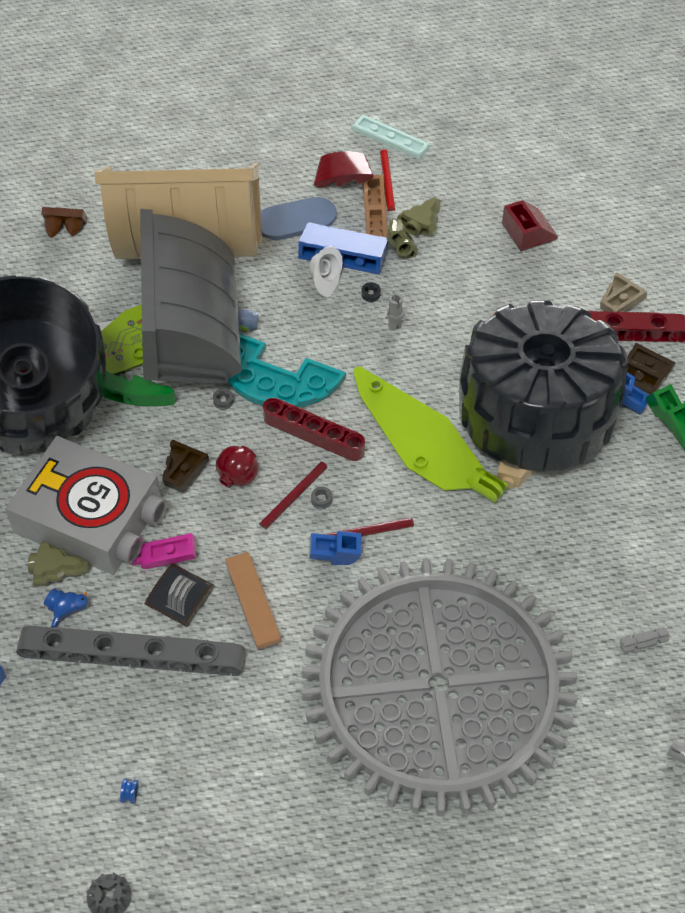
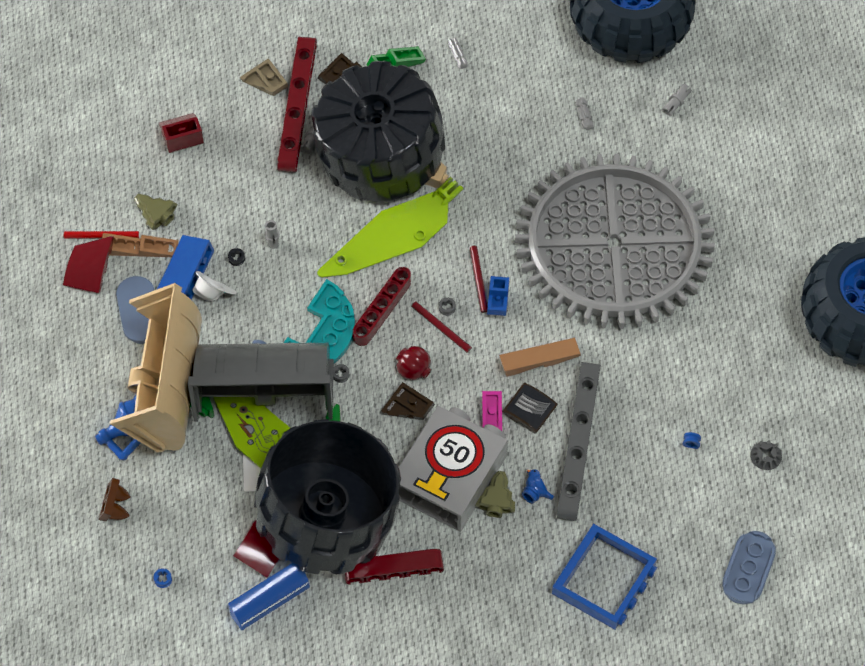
camera: 85 degrees left, 5 degrees up
(391, 137) = (45, 227): light aqua tile -> none
(401, 239) = (179, 227): olive rock -> none

